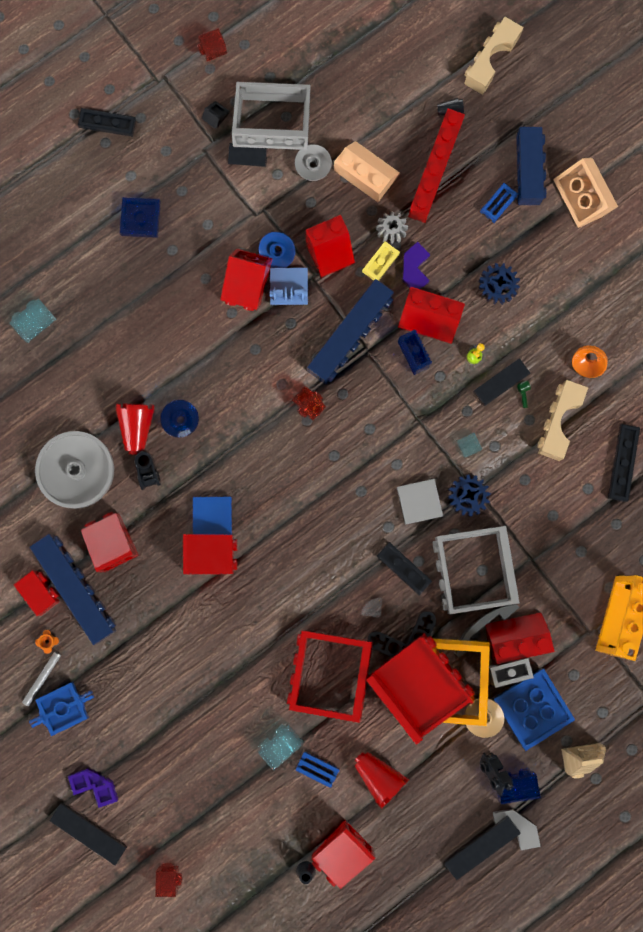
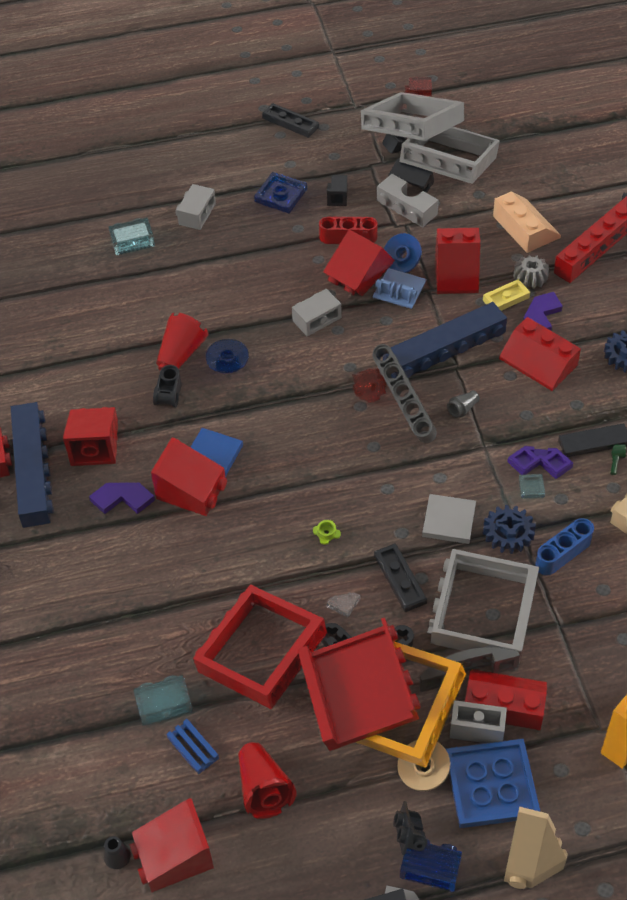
camera: 30 degrees right, 30 degrees down
(72, 264) = (196, 206): none -> light grey brick
(74, 469) = (96, 360): light grey dish -> none
(167, 580) = (111, 494): none -> dark purple tile
(190, 196) = (337, 191): none -> black brick
(212, 247) = (334, 229): none -> red beam
(223, 110) = (385, 116): none -> light grey window
(232, 342) = (316, 312): none -> light grey brick
(269, 192) = (418, 209): none -> light grey arch
(317, 155) = (474, 199): light grey dish -> none
(338, 552) = (326, 526): none -> lime plate
(346, 413) = (409, 401): none -> dark grey beam
(388, 390) = (461, 404): none -> dark grey cone
(414, 352) = (506, 377): clear blue brick -> none
(473, 357) = (572, 404): lime hinge -> none
(474, 413) = (551, 460): none -> dark purple tile
(521, 487) = (567, 537): none -> blue beam

